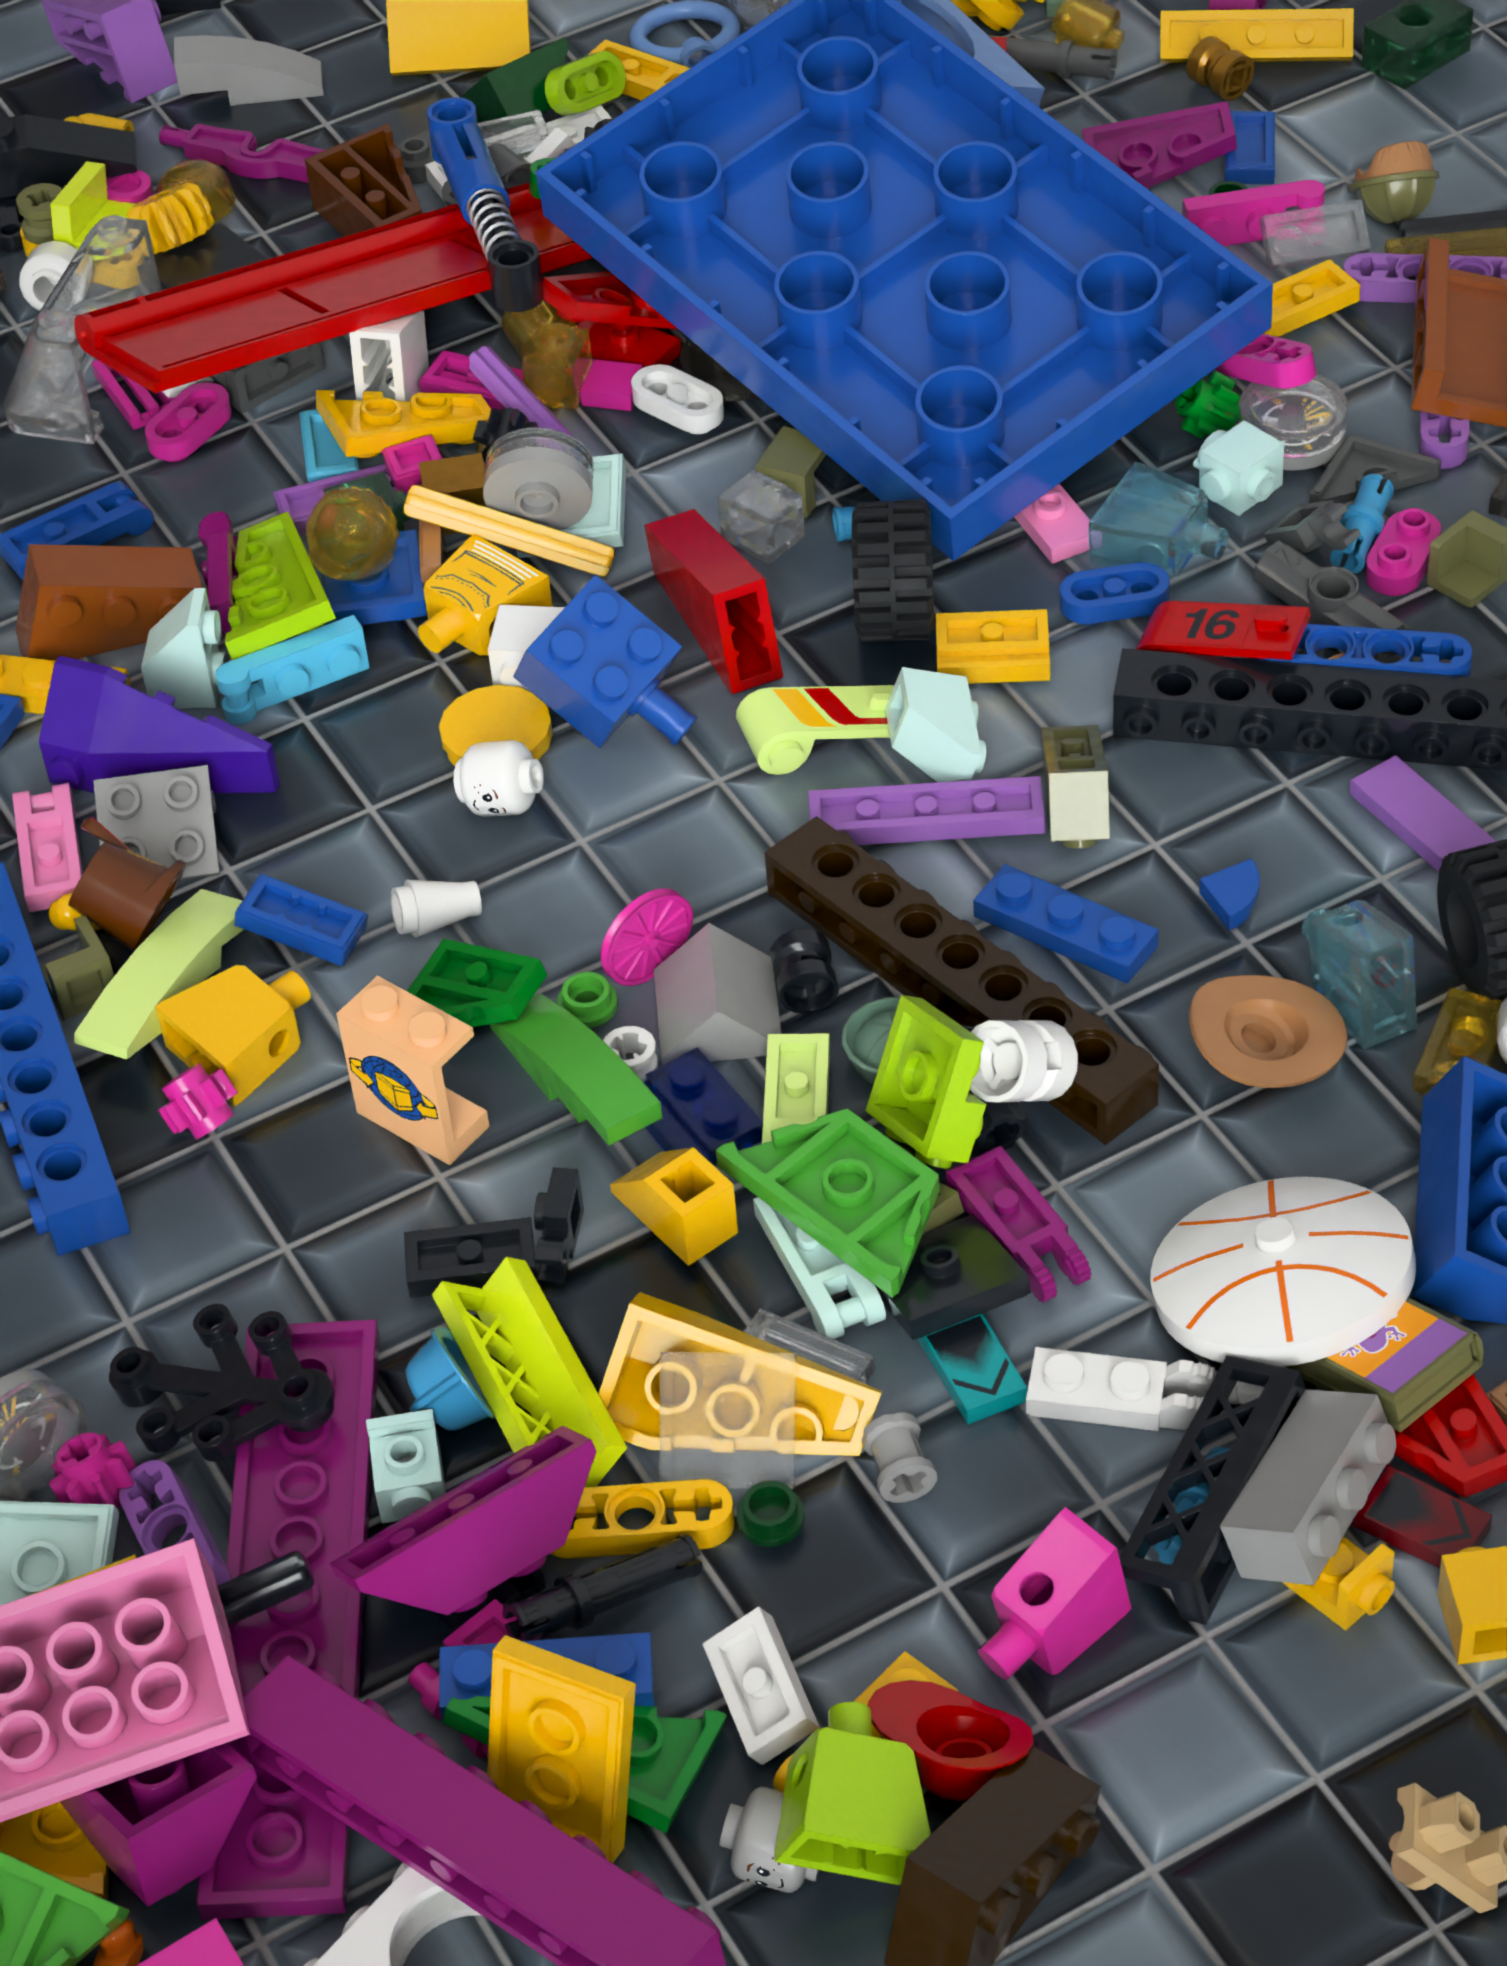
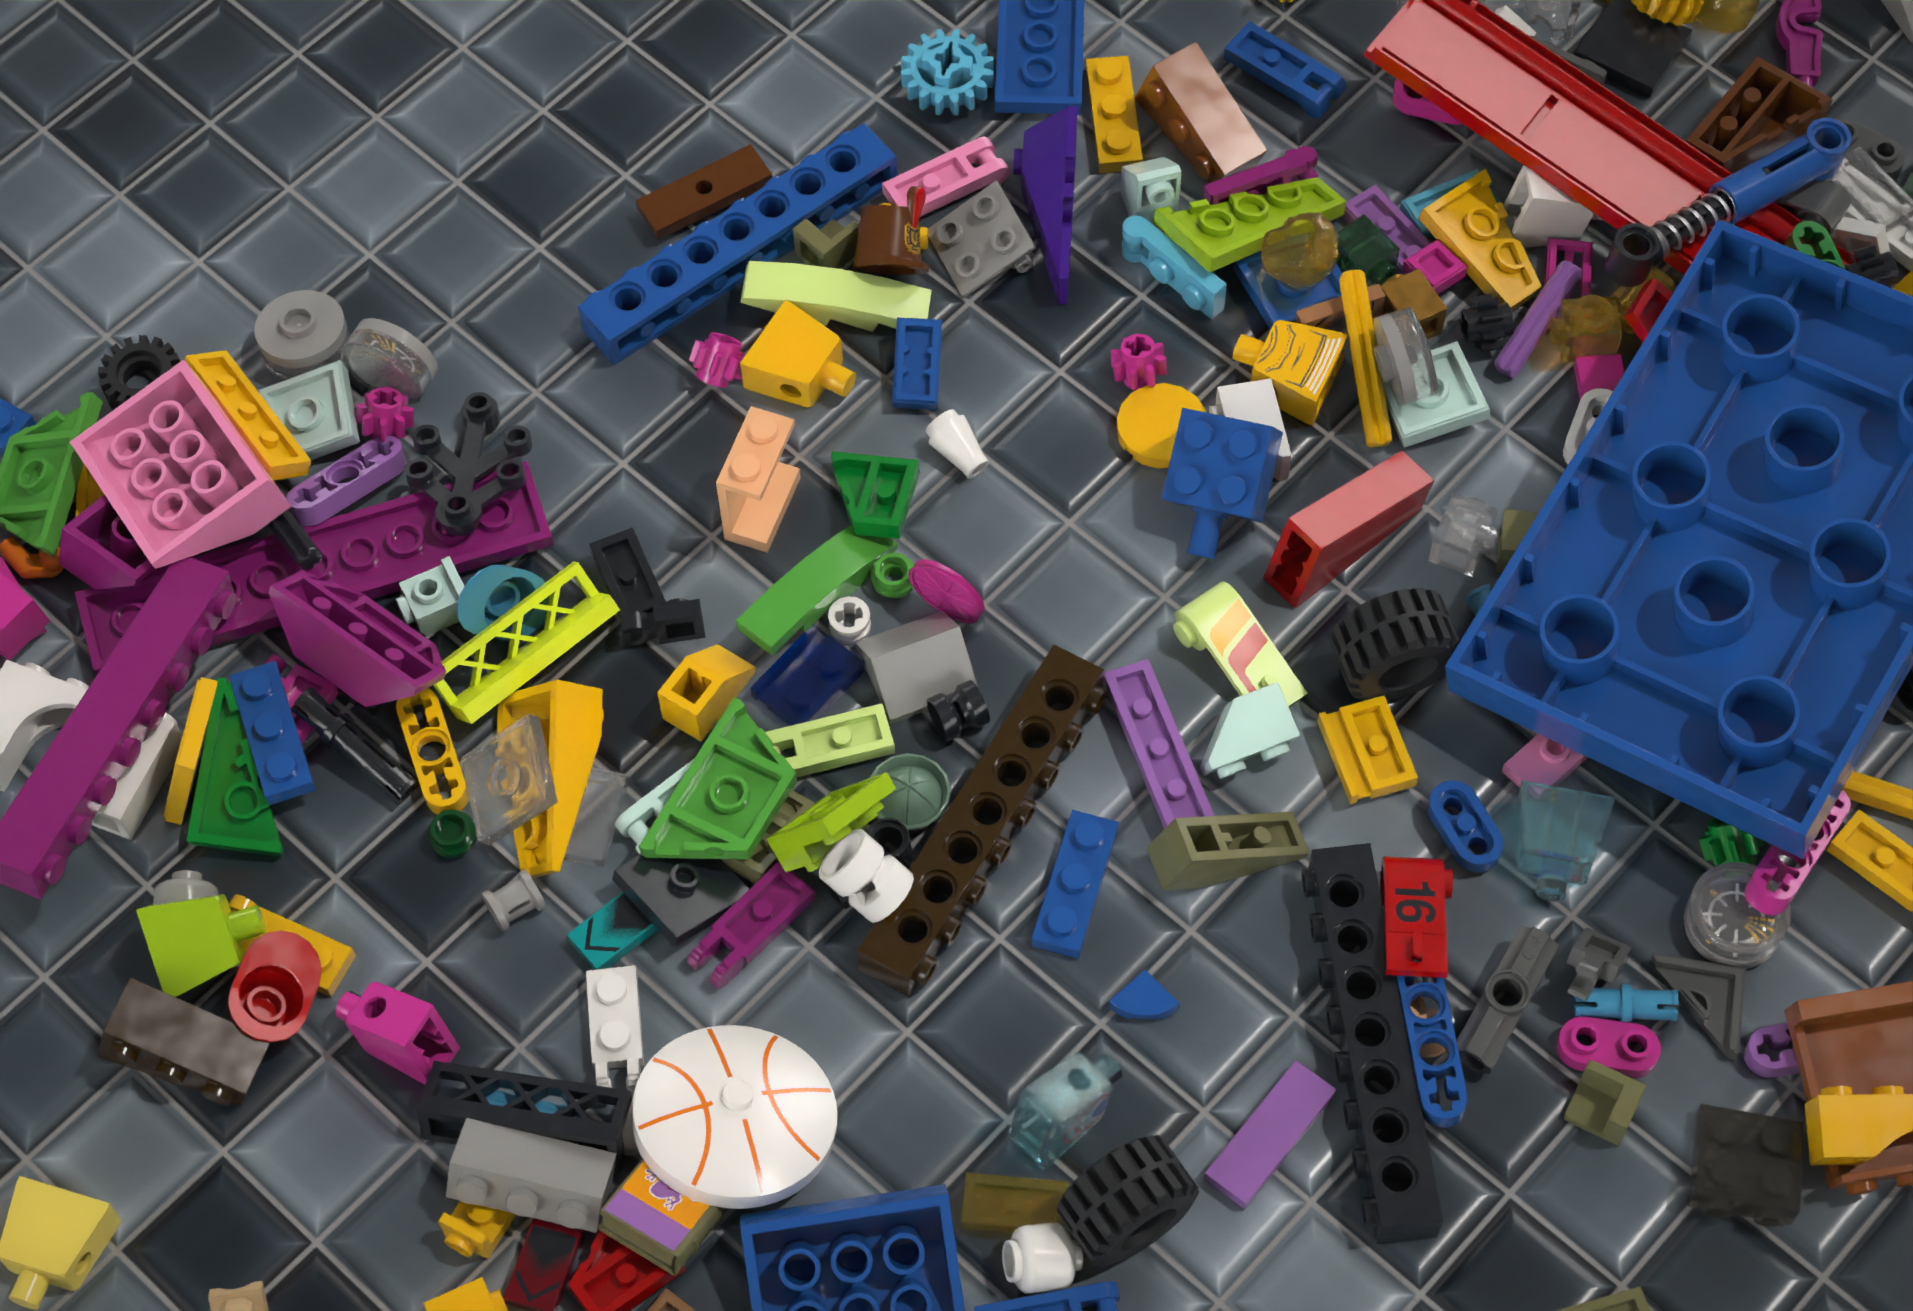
camera: 70 degrees right, 15 degrees up
(408, 721) = (1138, 361): none -> dark pink gear
(498, 778) = (1095, 439): white head -> none
(760, 1686) = (303, 865): white plate -> none
(1240, 466) = (1658, 886): light aqua brick -> none
(1266, 1030) = (978, 1051): medium nougat hat -> none

